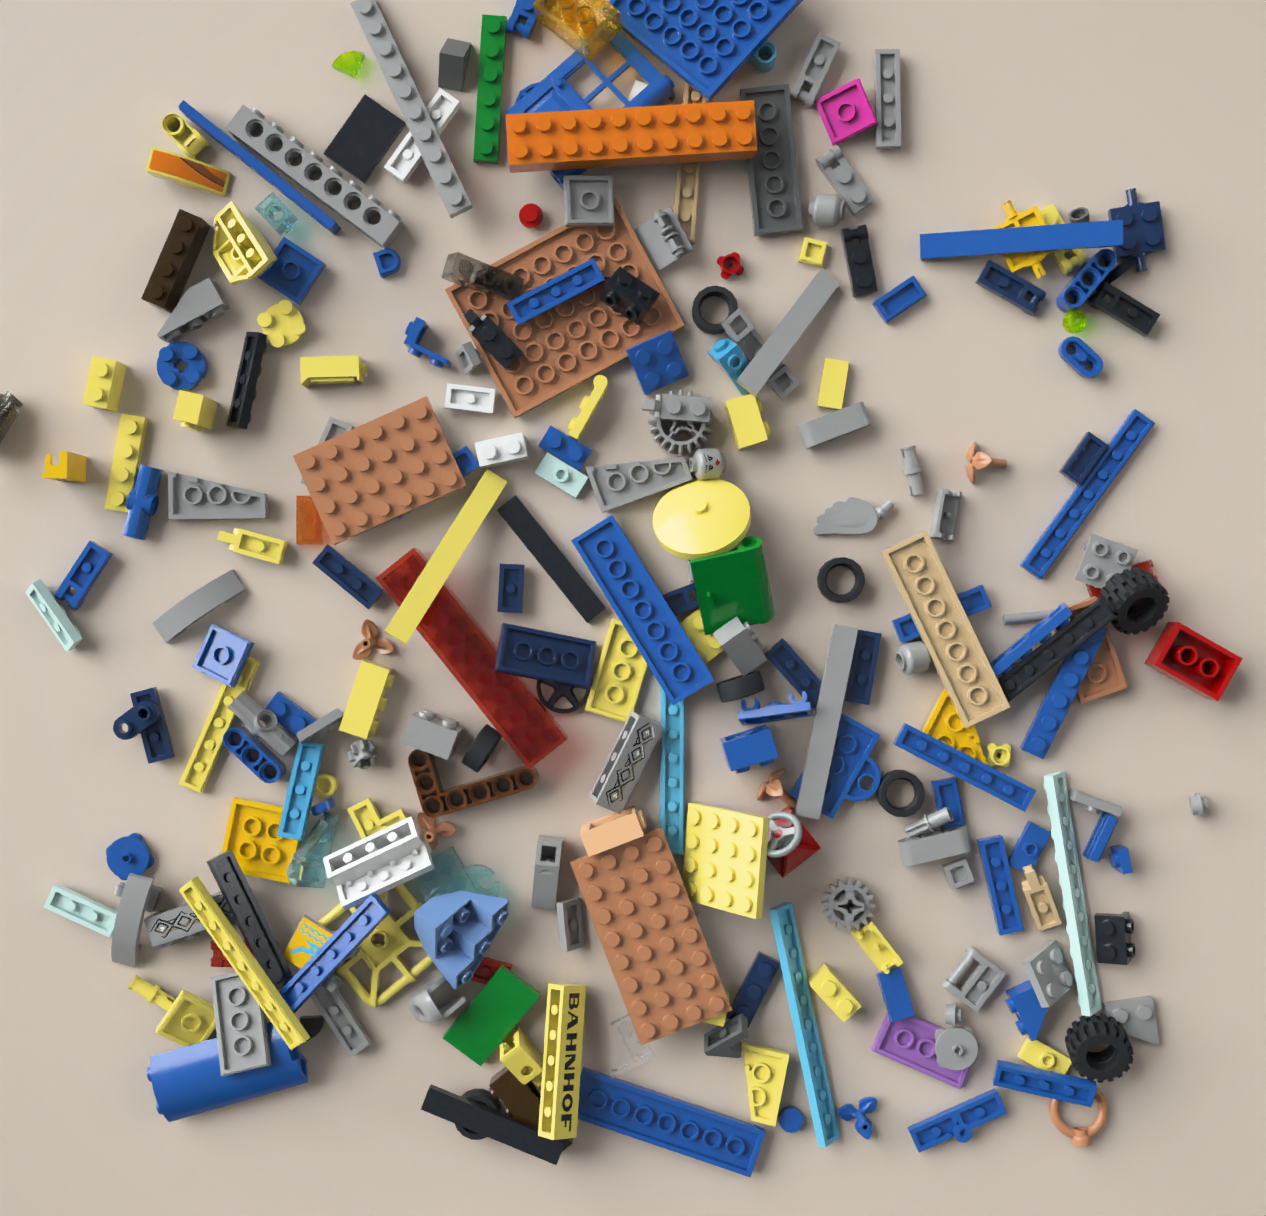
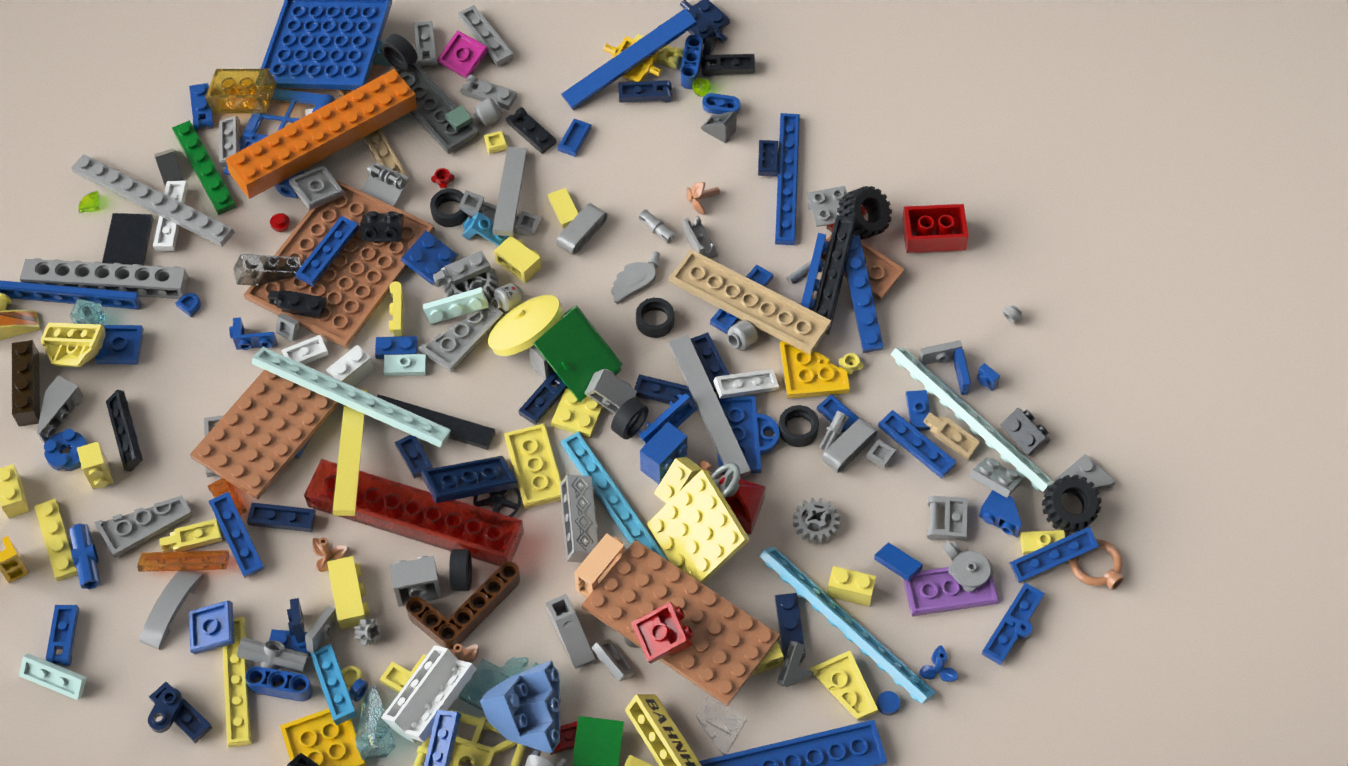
camera: 30 degrees left, 30 degrees down
(232, 566) = (183, 561): none -> clear orange tile
(282, 324) = (132, 380): light yellow piece -> none
(294, 572) = (236, 534): none -> blue plate
(304, 696) = (296, 620): none -> dark blue plate
(332, 370) = (188, 388): light yellow window -> none
(481, 490) = (351, 396): none -> light aqua plate
(533, 73) = (228, 138): none -> light grey tile
(622, 951) = (663, 632): none -> plate
(642, 610) = (523, 411): blue plate -> none
(648, 444) = (455, 305): none -> light aqua plate
(742, 788) = (676, 478): none -> light yellow brick
(774, 74) = (399, 52): none -> black tyre
(790, 201) = (458, 118): none -> sand green tile
(876, 946) = (859, 536): light yellow hinge -> none
(877, 716) = (746, 383): none -> white plate
(964, 767) = (829, 377): blue plate -> none
(1060, 384) = (721, 125): none -> dark grey slope

